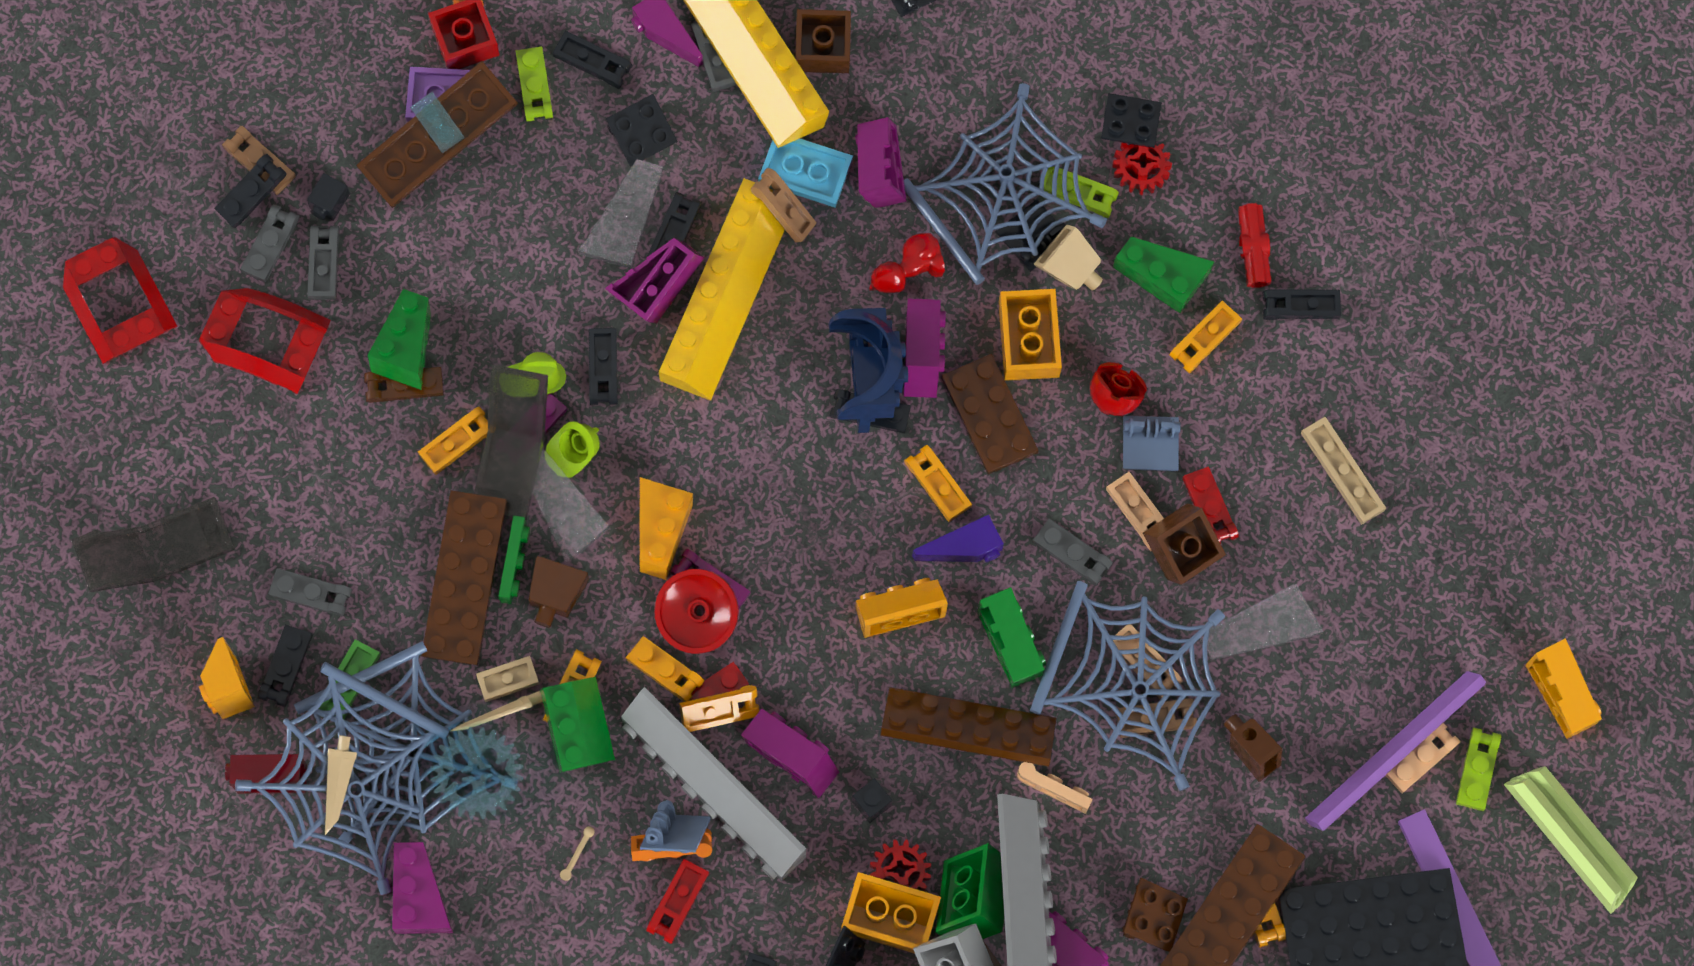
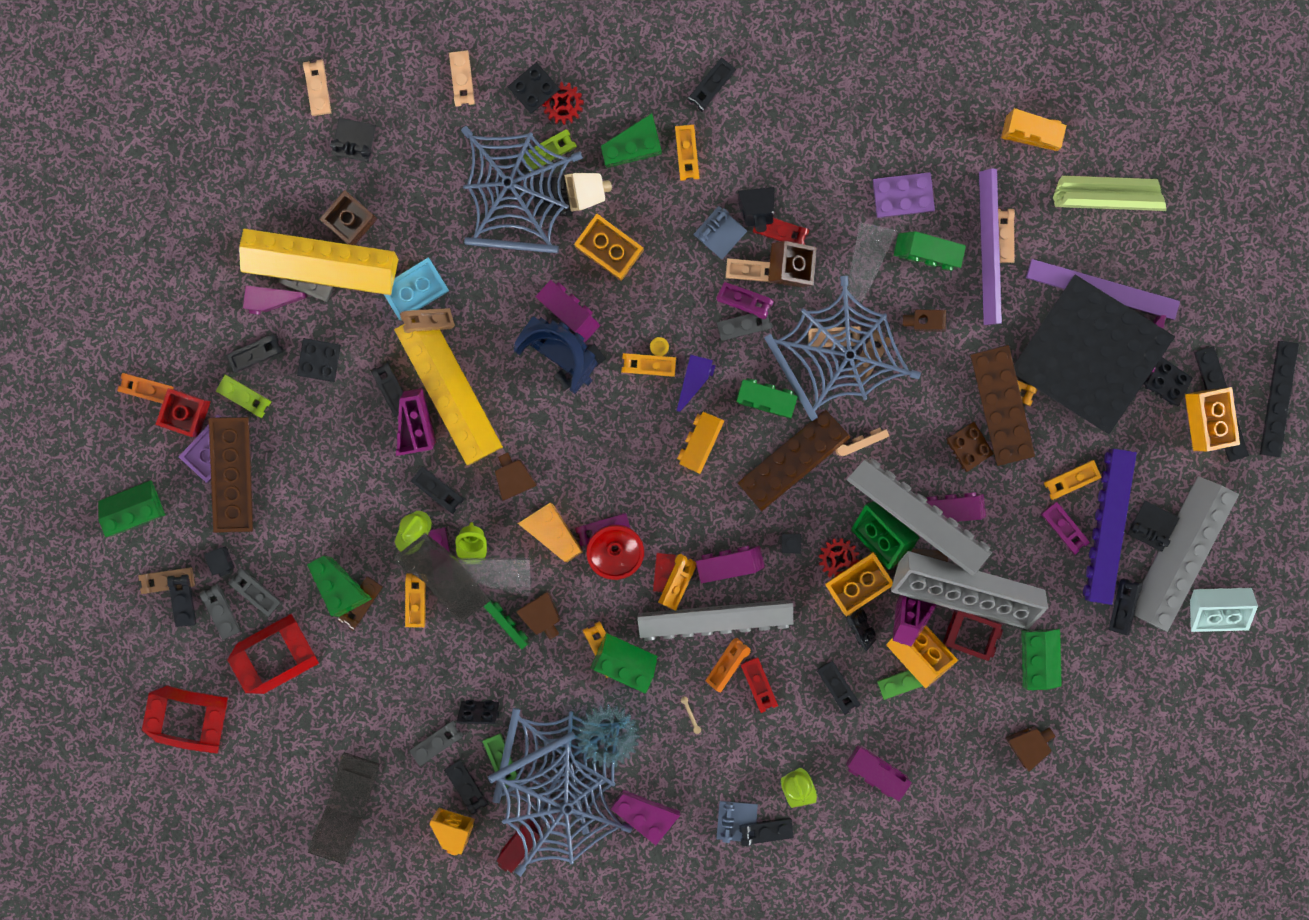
camera: 50 degrees left, 15 degrees up
(307, 62) = (129, 509): none -> green slope
(338, 776) = (551, 811): tan bar -> none
(380, 600) = (478, 712): none -> black hinge
(437, 122) = (225, 471): clear light blue plate -> none
(464, 577) = (495, 657): reddish brown plate -> none
(507, 679) = (568, 678): tan plate -> none
(520, 704) = (587, 686): tan bar -> none
(623, 222) = (365, 415): clear wing -> none
(664, 669) = (631, 592): light orange plate -> none
(674, 831) = (723, 659): sand blue hinge -> none
(685, 436) = (513, 477): none -> reddish brown torso
(880, 163) = (445, 246): magenta wedge -> none
(920, 255) = (515, 268): red animal -> none
(968, 478) = (659, 346): none -> yellow tile
(989, 414) = (633, 304): reddish brown plate -> none
(1076, 41) = (461, 77): none -> light nougat plate
(1100, 526) = (744, 300): none -> magenta plate
(1116, 390) = (678, 226): red cylinder -> none
(1214, 458) = (757, 207): none -> black torso
(1255, 245) = (658, 81): red piece -> none
(1333, 685) = (930, 250): none -> green wedge
(1343, 470) = (820, 142): tan plate -> none
(1367, 608) = (903, 195): none -> medium lavender plate
(1478, 770) = (1034, 212): lime plate -> none

